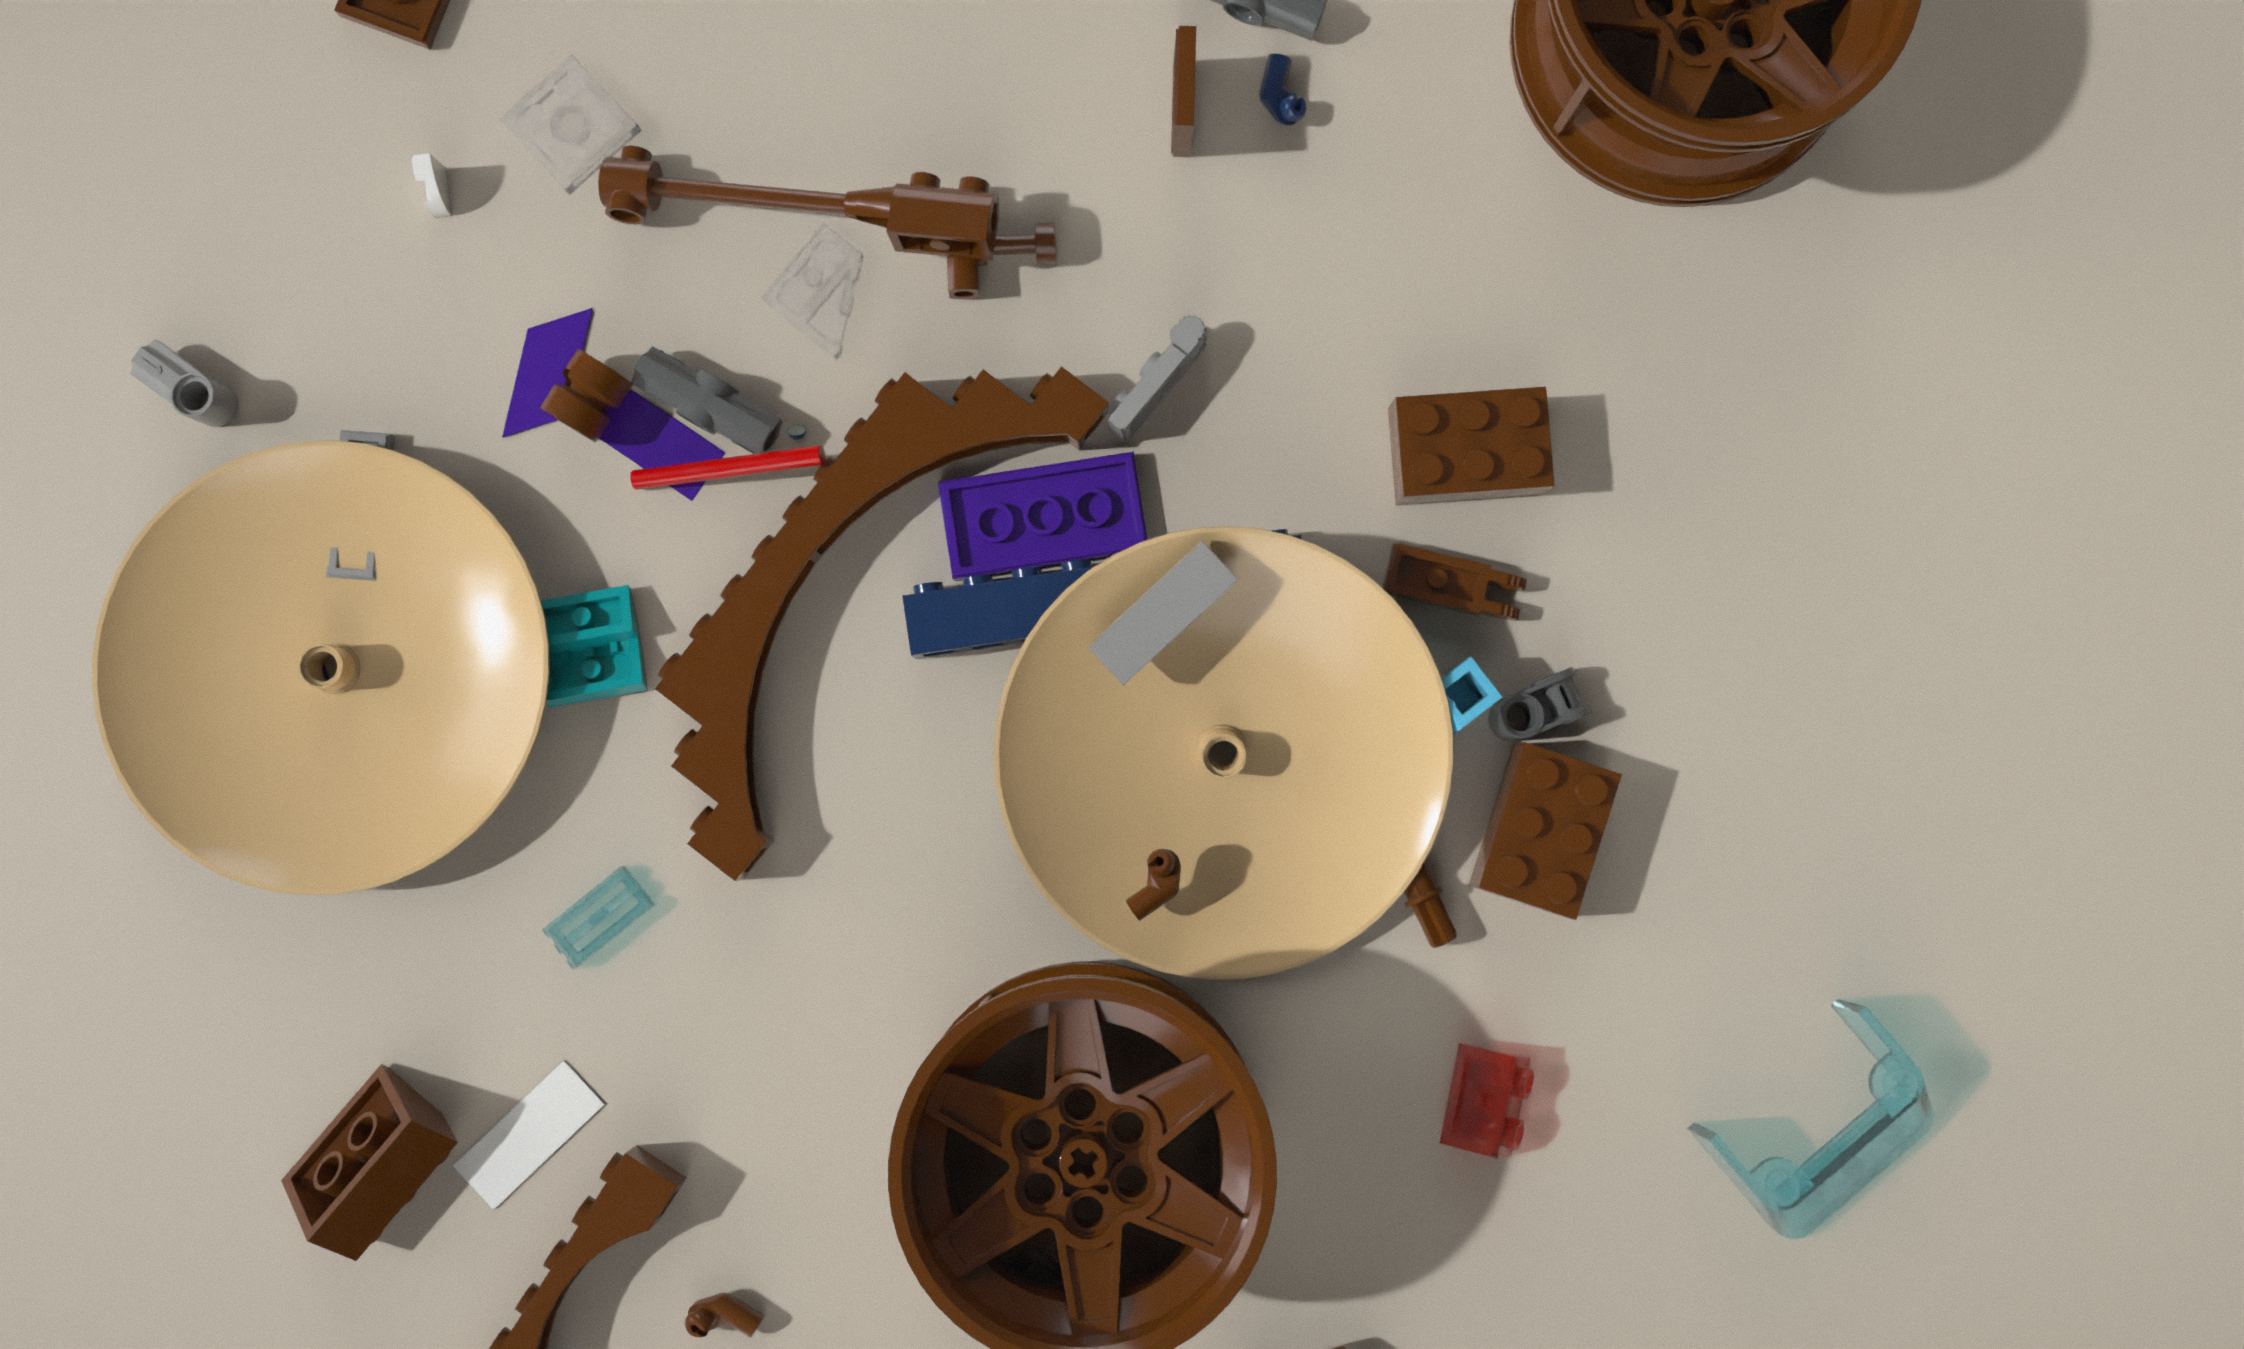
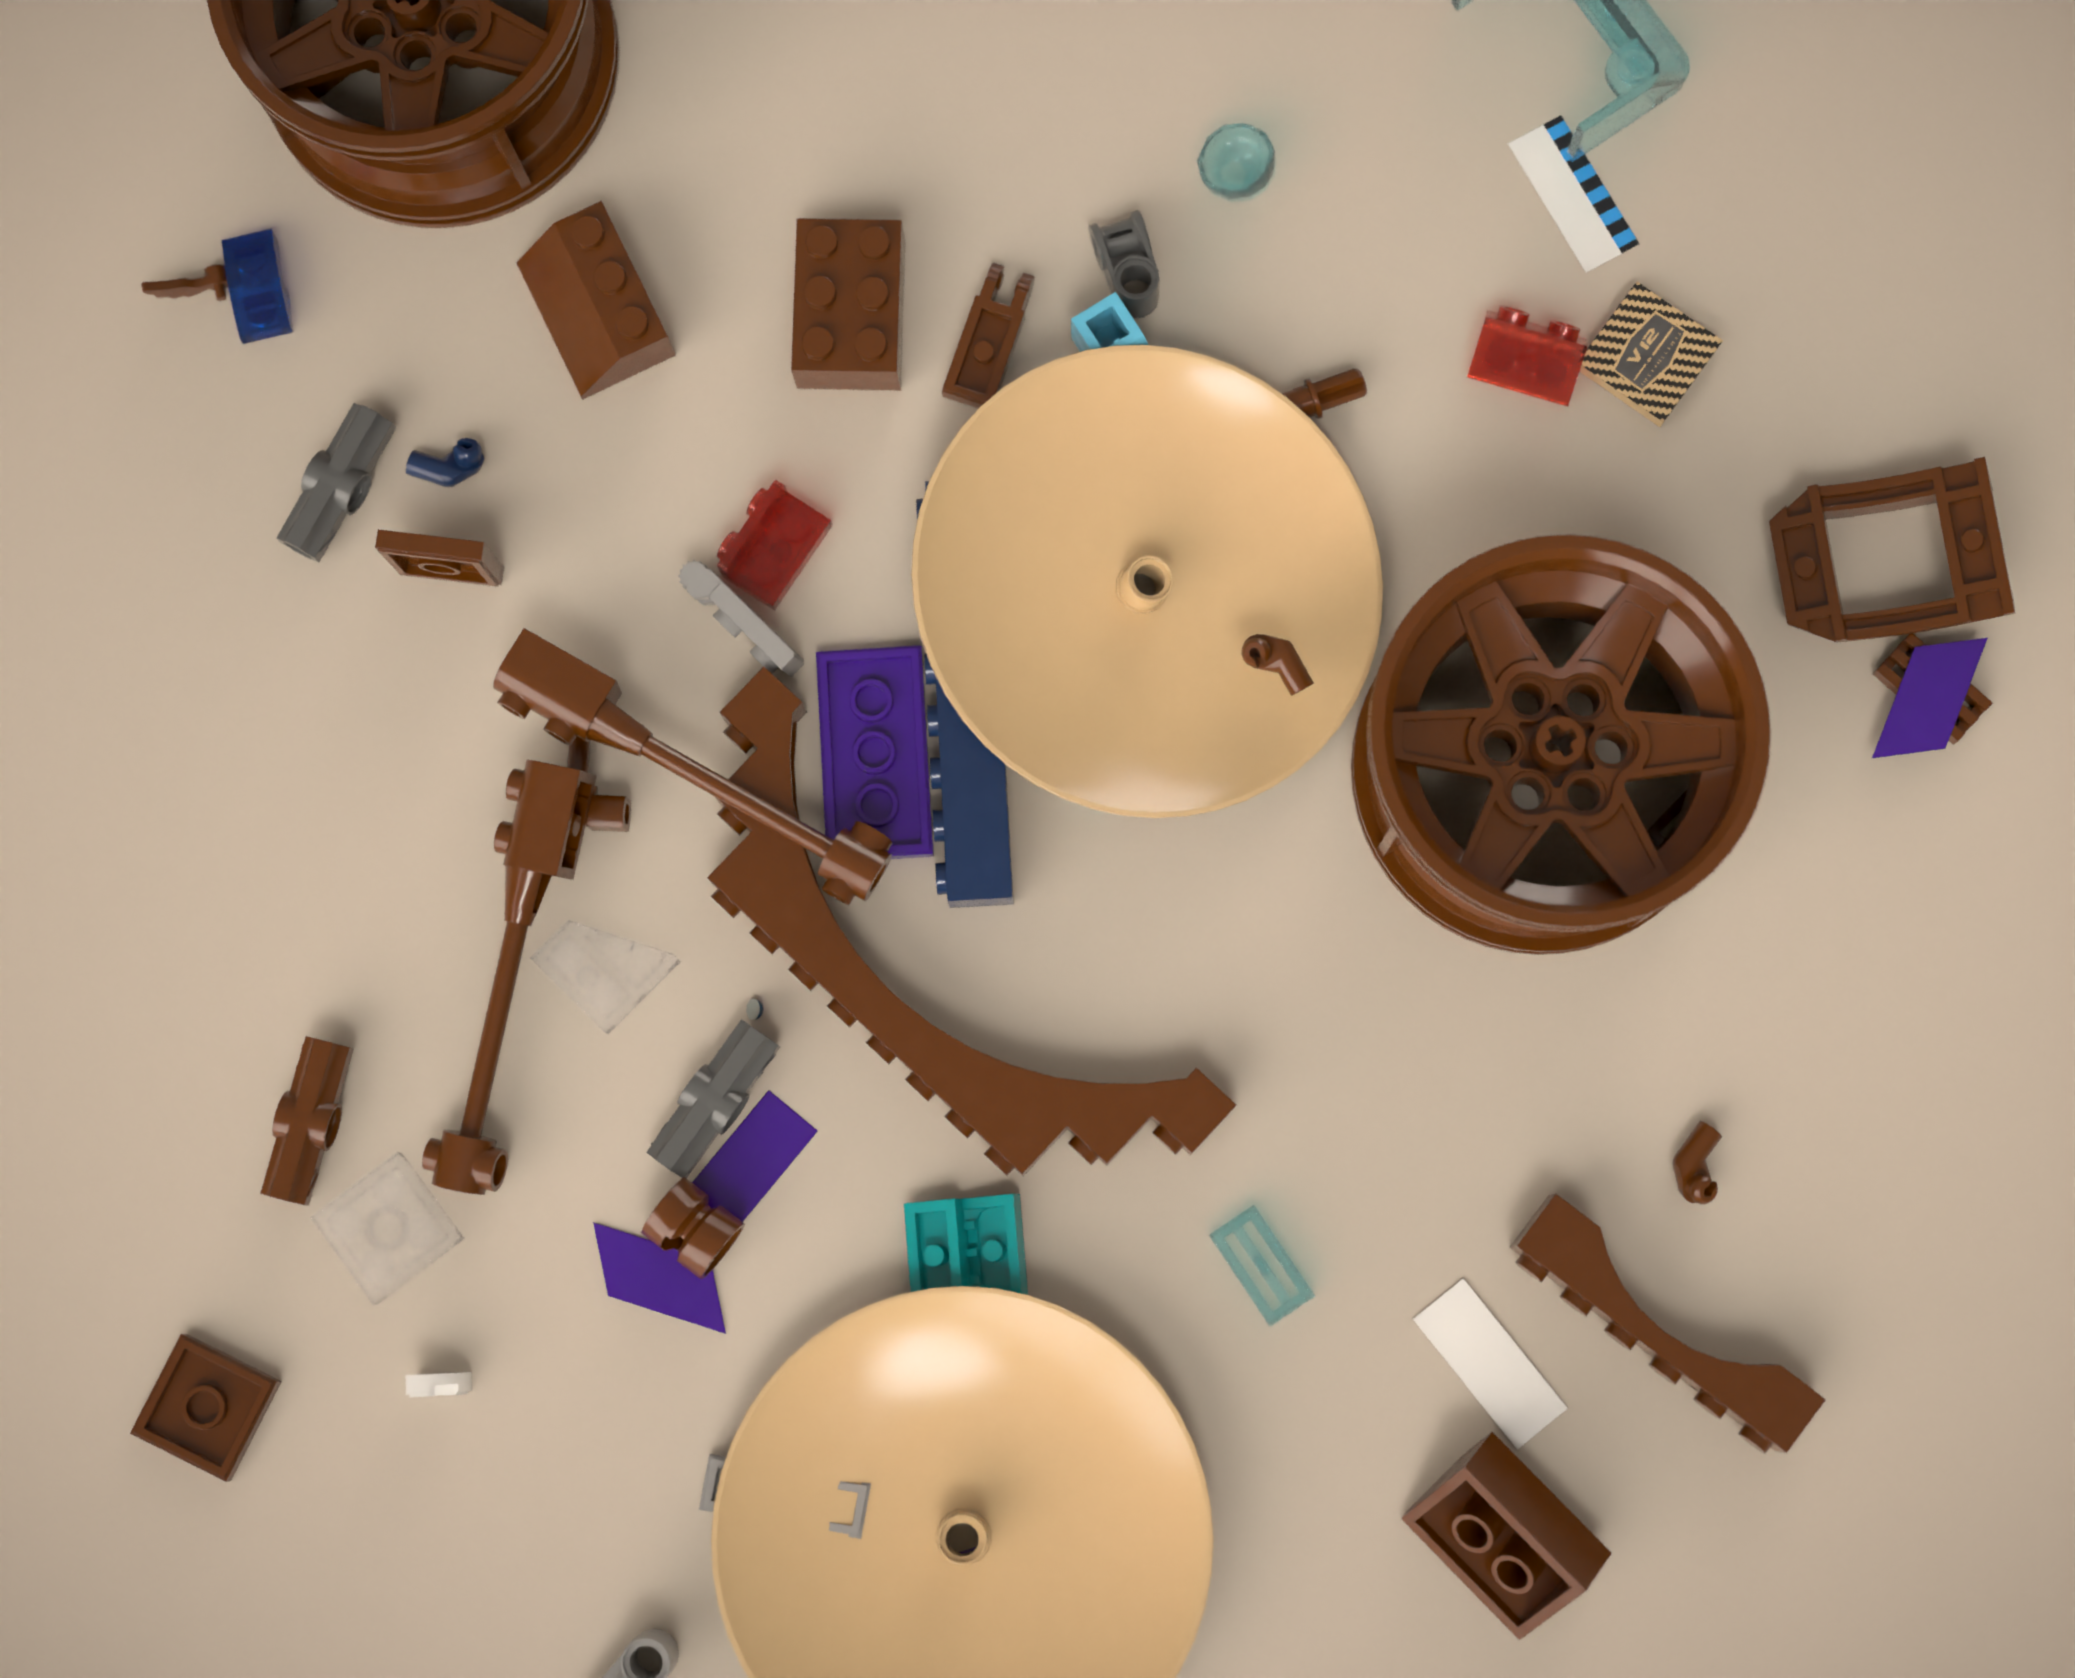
camera: 75 degrees left, 5 degrees down
(657, 40) = (307, 1121): none -> reddish brown piece
(728, 467) = (788, 1081): red bar -> none
(1053, 239) = (582, 705): none -> reddish brown bar
(1162, 612) = (996, 618): light grey tile -> none
(1232, 400) = (772, 544): none -> clear red bracket
(1451, 209) = (593, 301): none -> reddish brown slope
(1501, 1218) = (1649, 354): none -> tile
(1545, 830) = (1255, 269): reddish brown brick -> none
(1650, 804) = (1237, 162): none -> clear light blue hair
(1655, 1132) = (1573, 195): none -> white sticker

